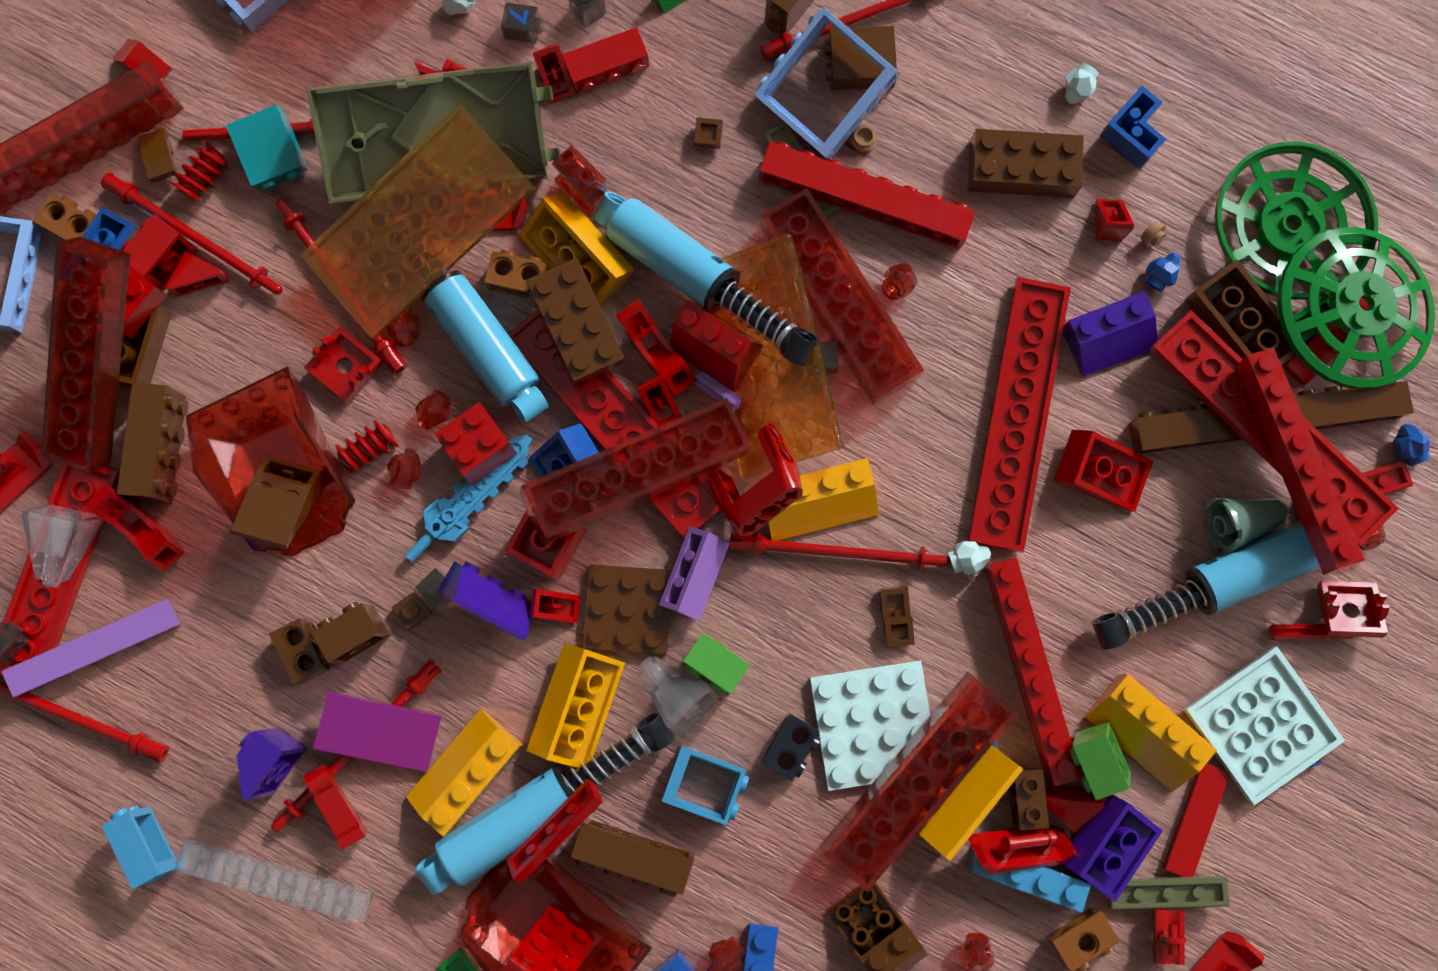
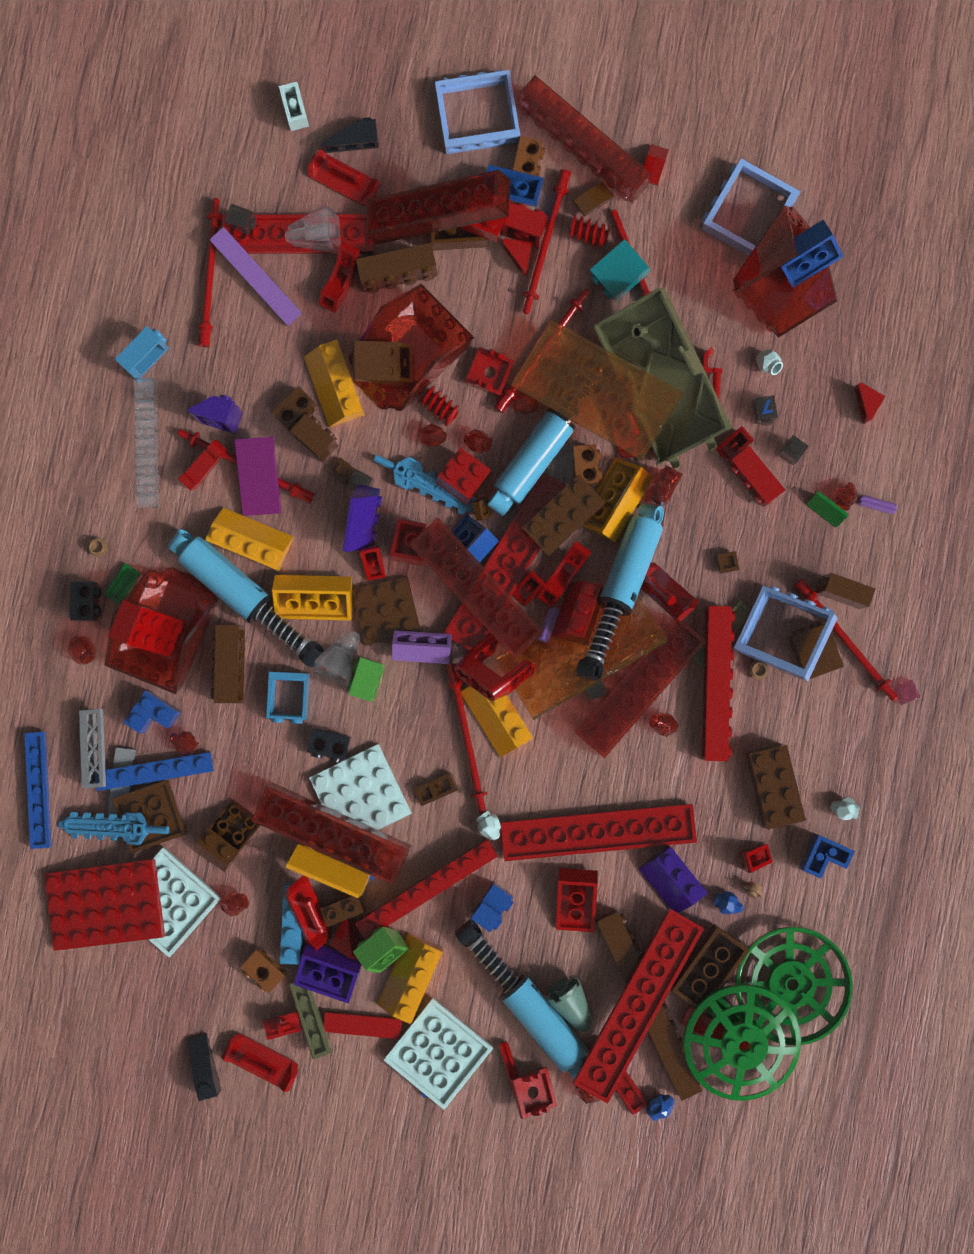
camera: 80 degrees right, 5 degrees up
(284, 584) = (333, 384): none -> light orange slope
(529, 433) = (481, 509): none -> reddish brown plate
(554, 831) = (228, 609): red plate -> none
(729, 217) = (668, 593): none -> red piece
(1081, 588) = (490, 908): none -> blue brick
(1299, 462) = (617, 1026): red brick -> none

